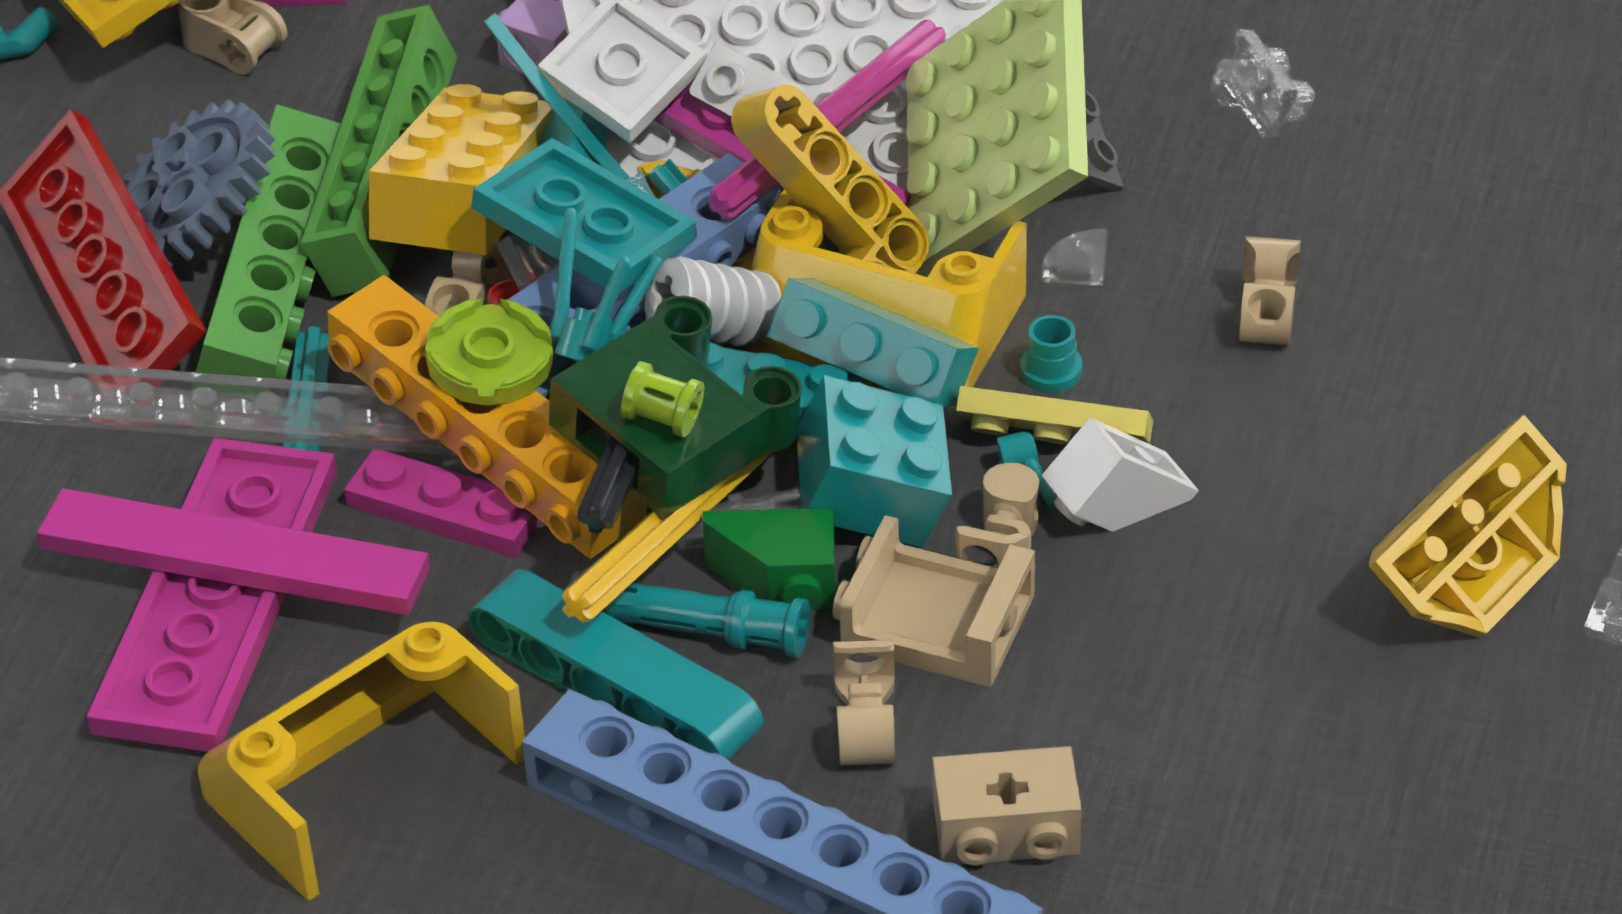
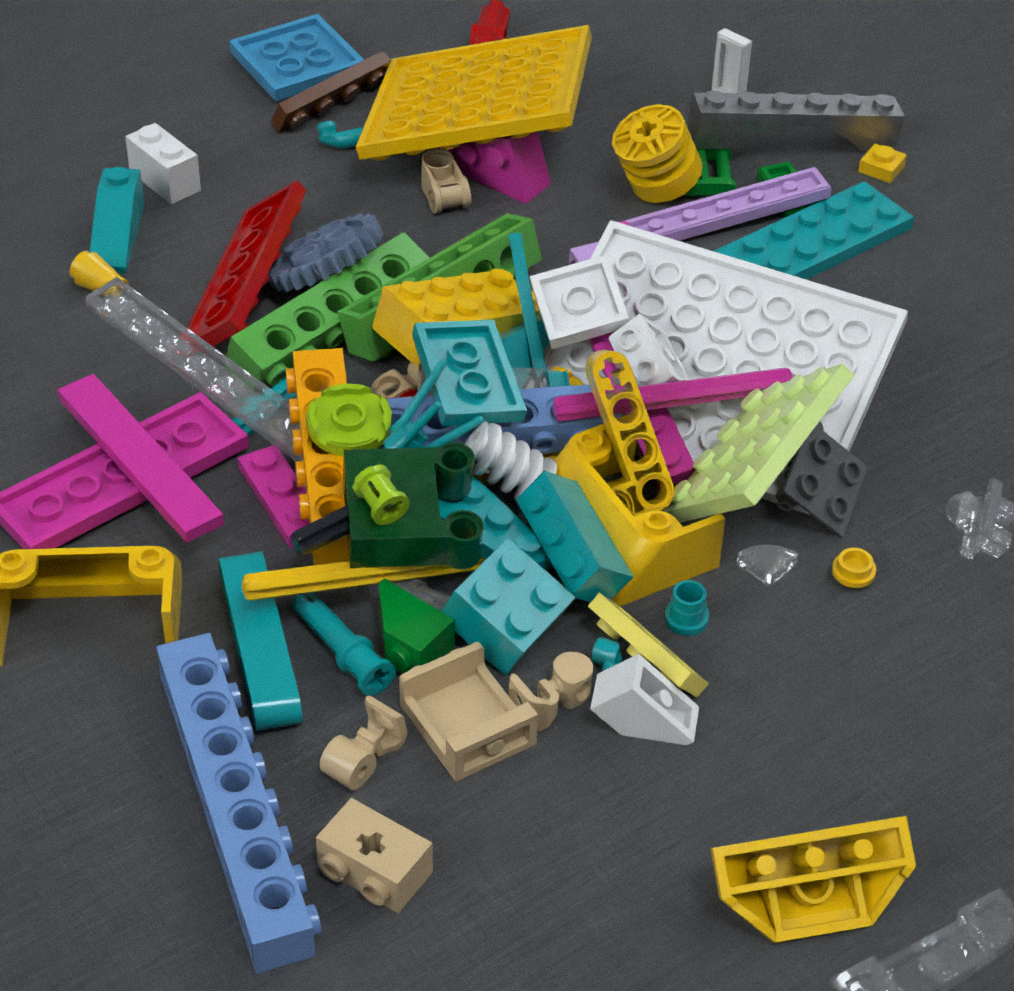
camera: 35 degrees right, 0 degrees up
(1177, 211) = (854, 568): none -> yellow plate
(1268, 289) = (844, 657): tan leg -> none

